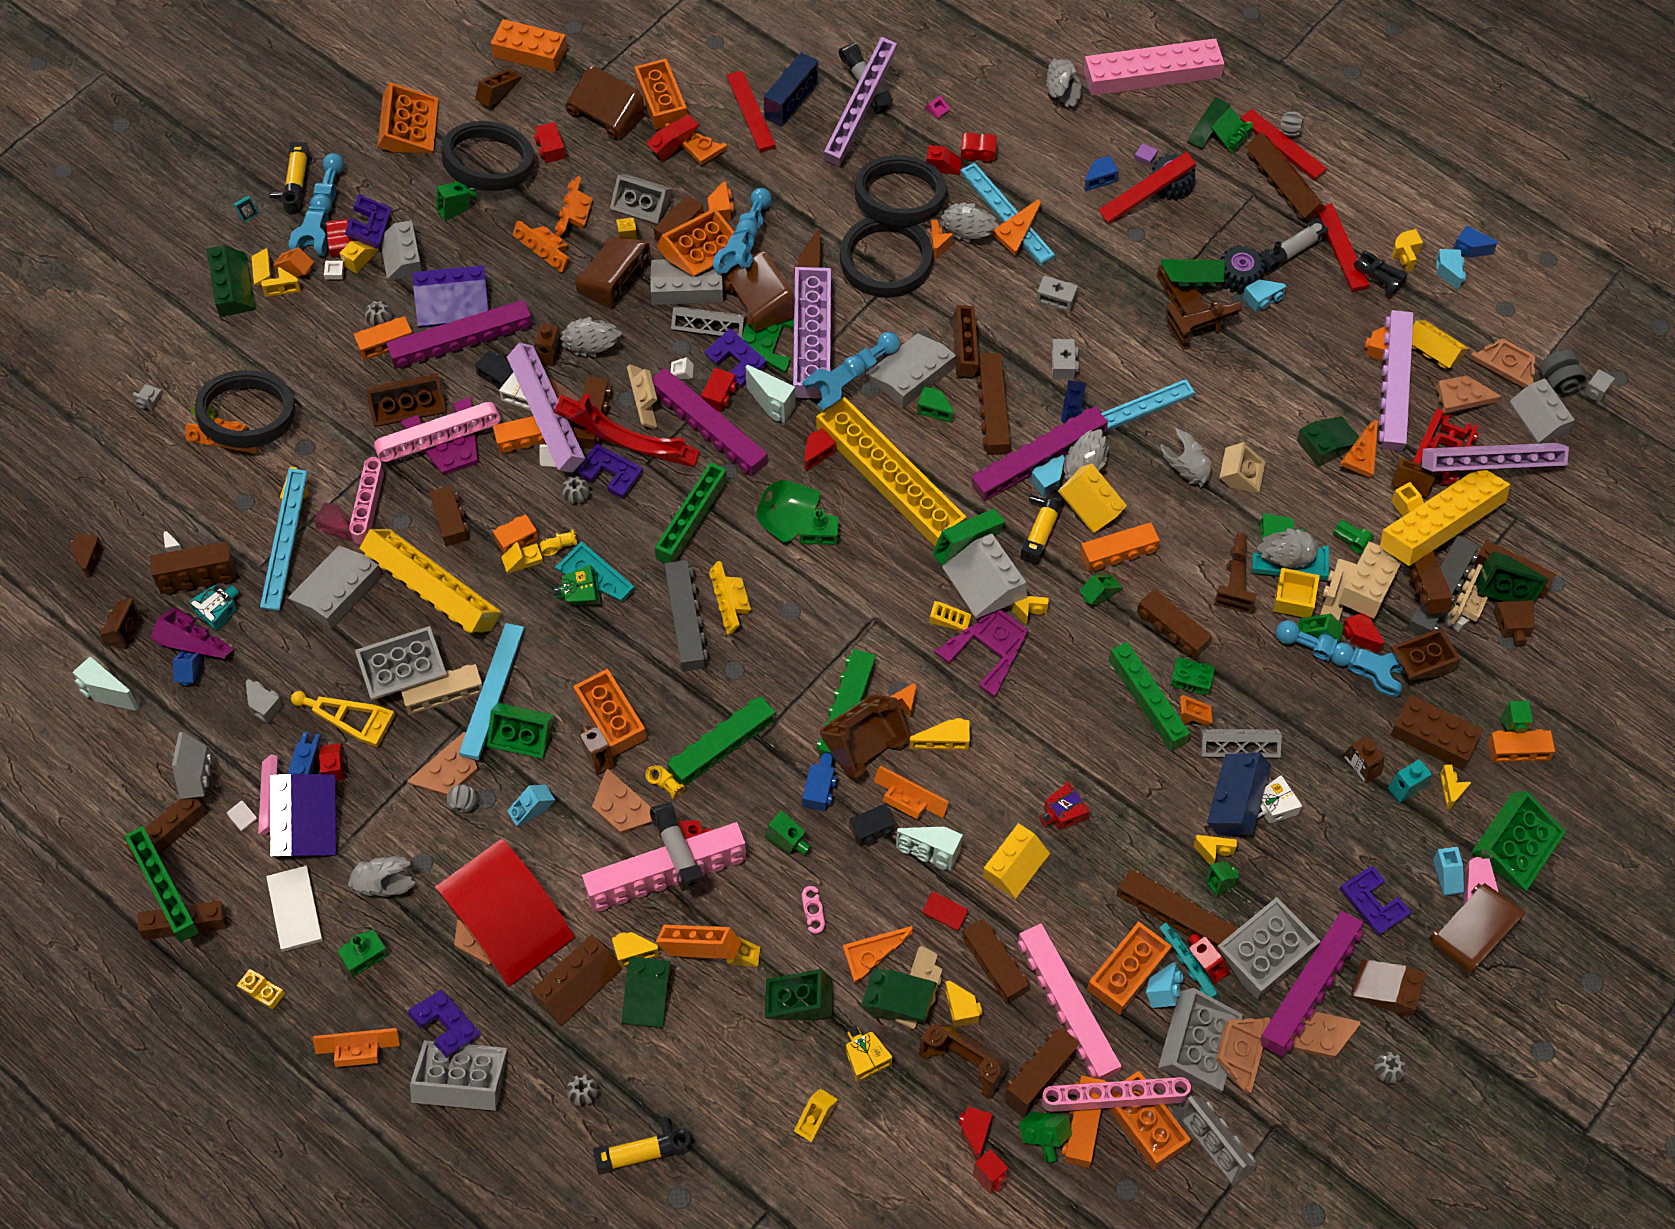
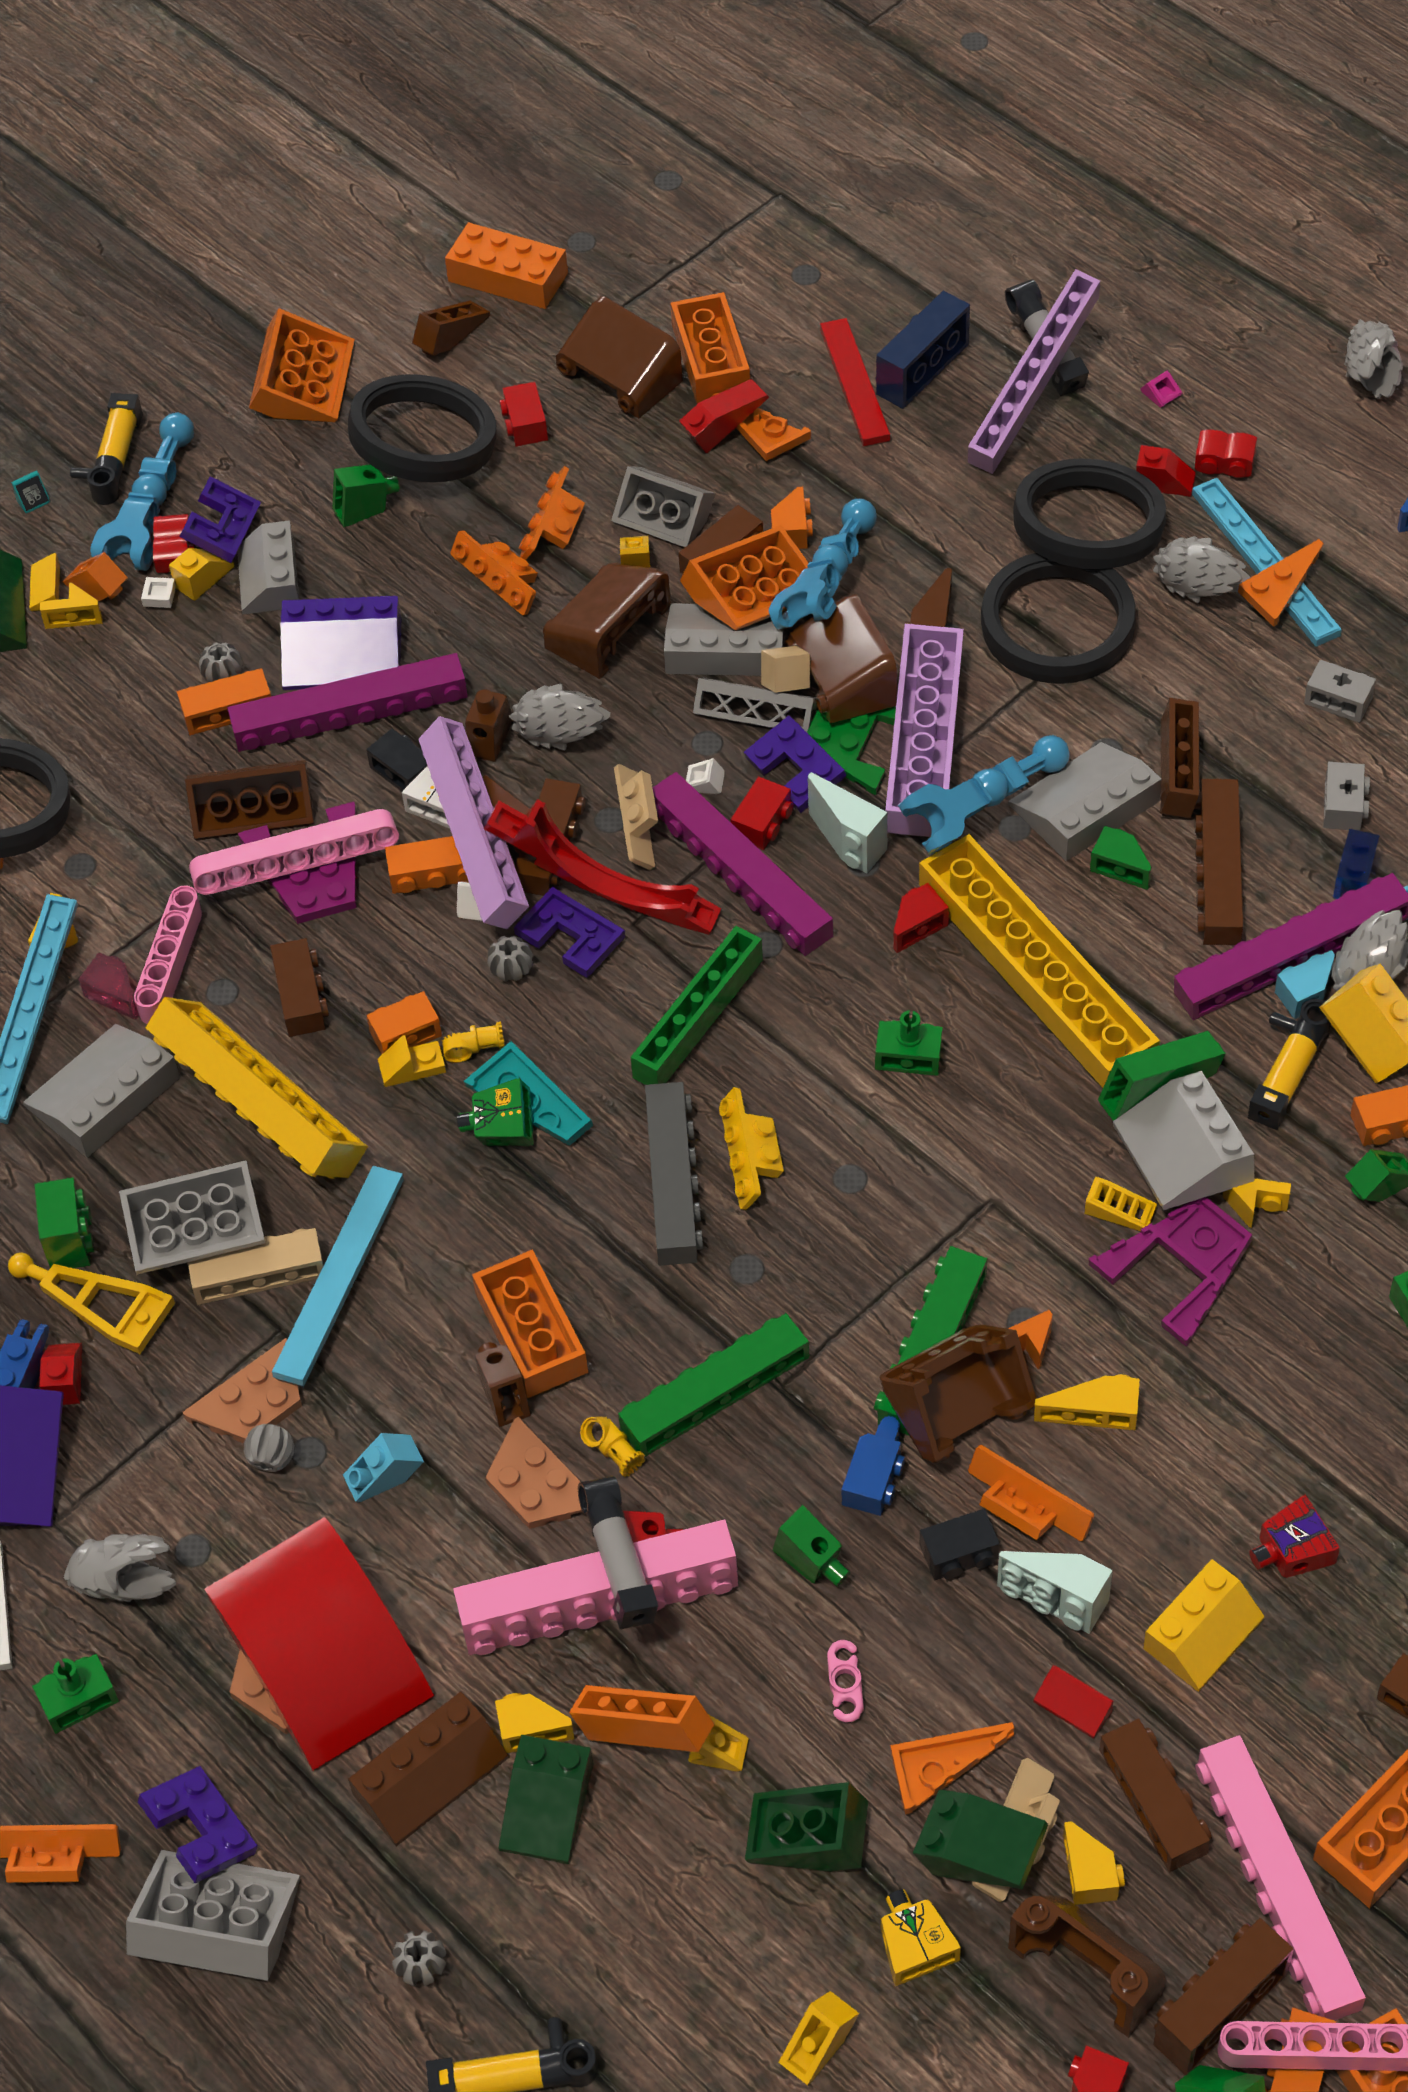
camera: 10 degrees right, 5 degrees down
(323, 671) = (64, 1223): none -> green brick
(519, 730) = (377, 1342): green slope -> none
(725, 299) = (785, 669): none -> tan piece
(790, 502) = (864, 1000): green piece -> none
(939, 241) = (1150, 598): orange slope -> none

